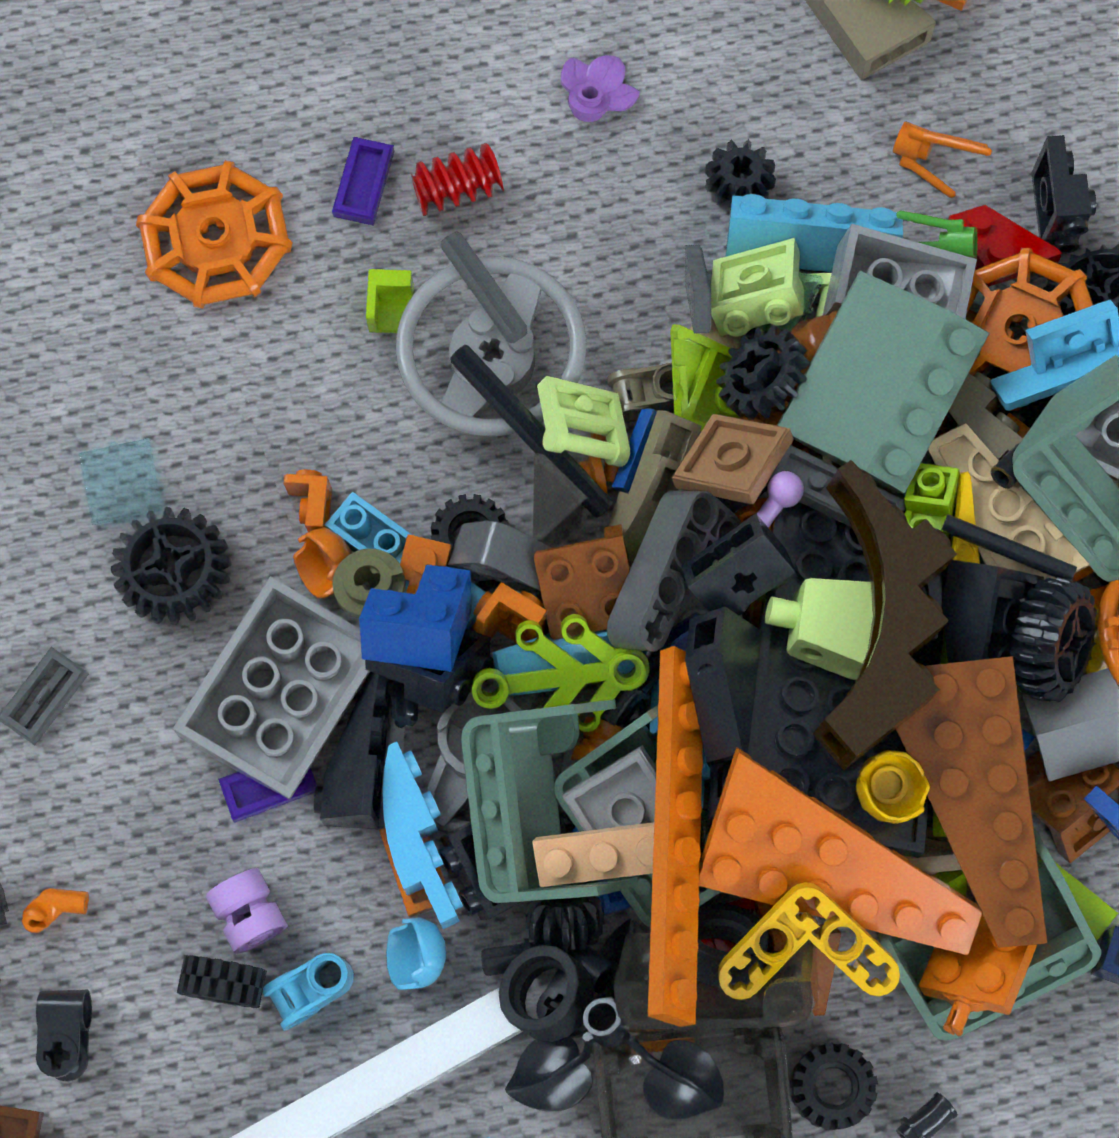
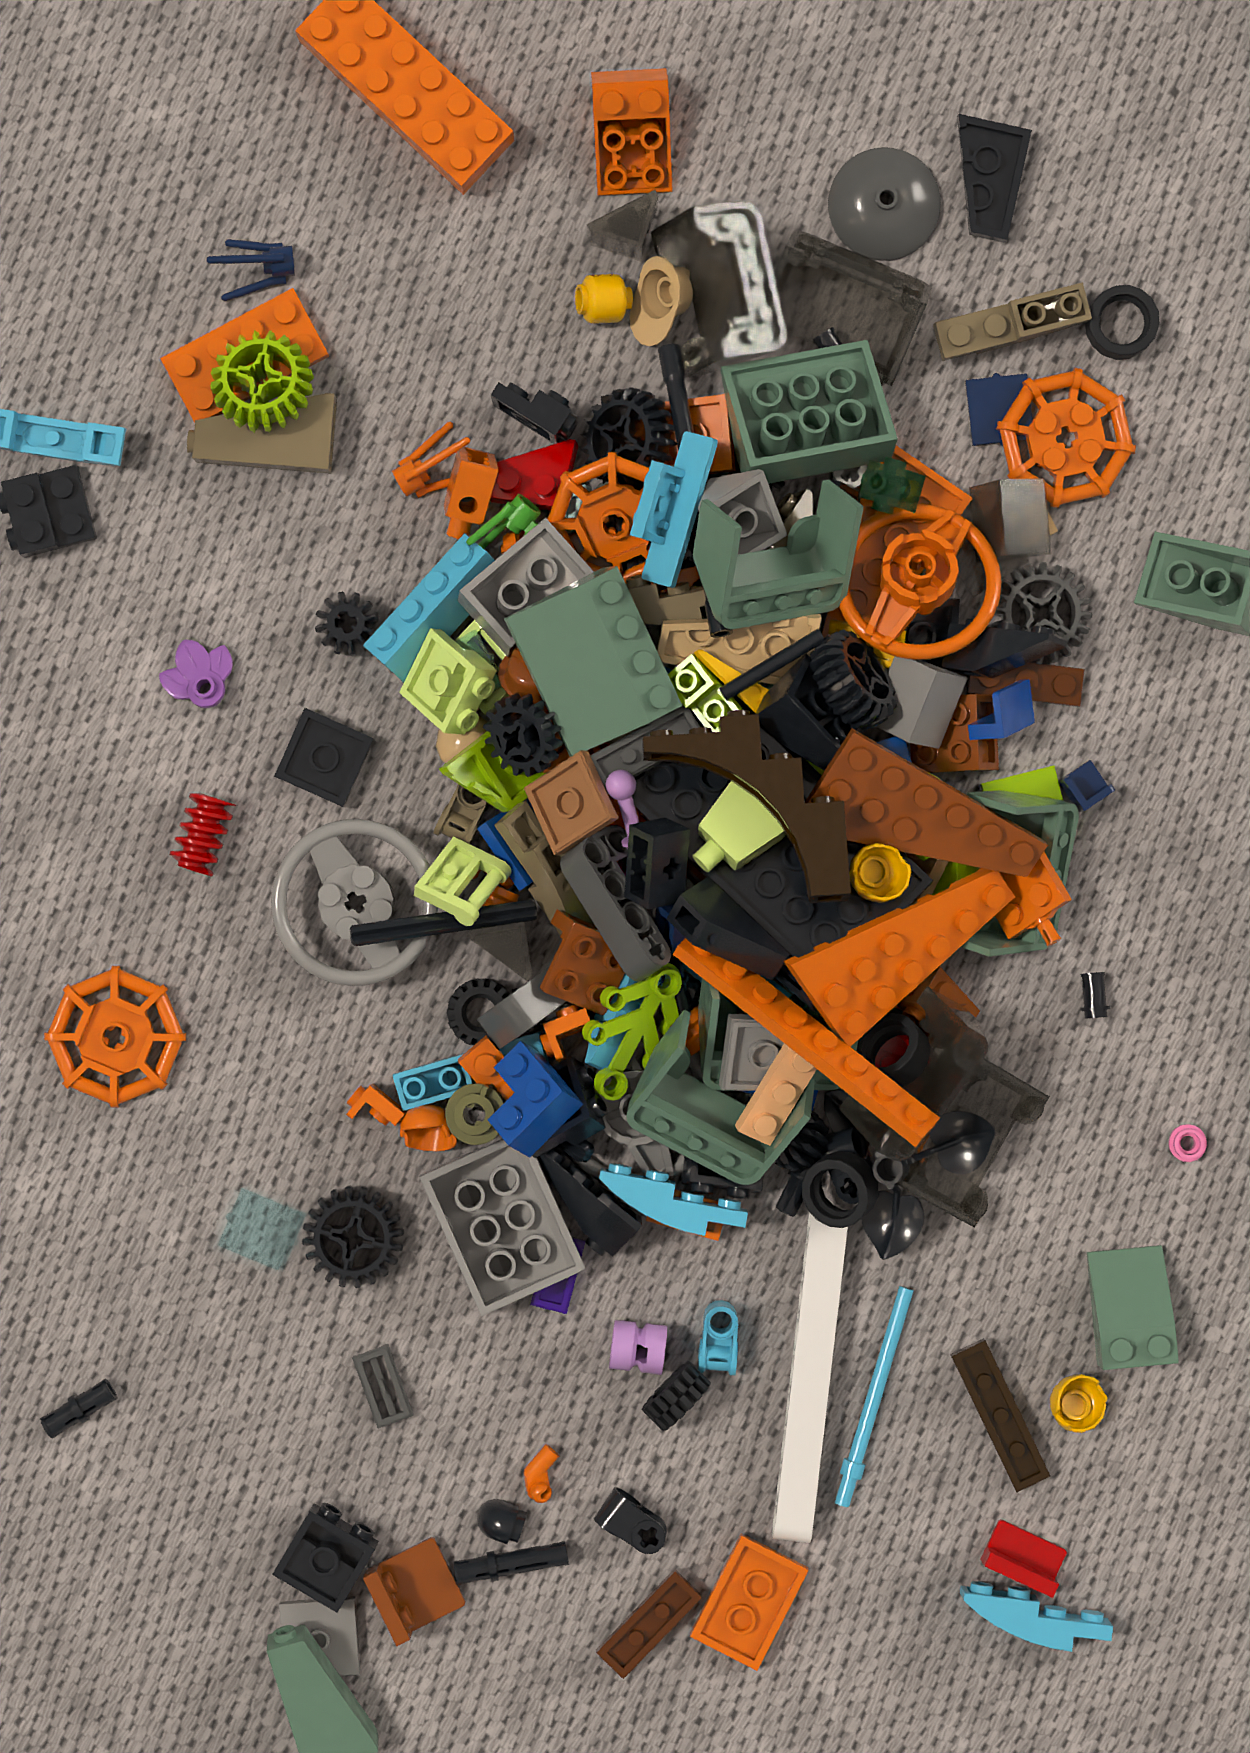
camera: 55 degrees left, 15 degrees up
(363, 181) = (149, 898): dark purple tile -> none
(387, 298) = (261, 947): lime panel -> none
(415, 954) = (747, 1254): medium azure hair -> none
(484, 287) = (311, 880): dark grey axle -> none
(604, 239) = (324, 757): none -> black plate
(697, 289) = (420, 727): dark grey tile -> none
(798, 931) = (926, 1003): yellow beam -> none
(862, 1082) = (1051, 1045): black tyre -> none
(955, 178) = (473, 477): none -> orange torso

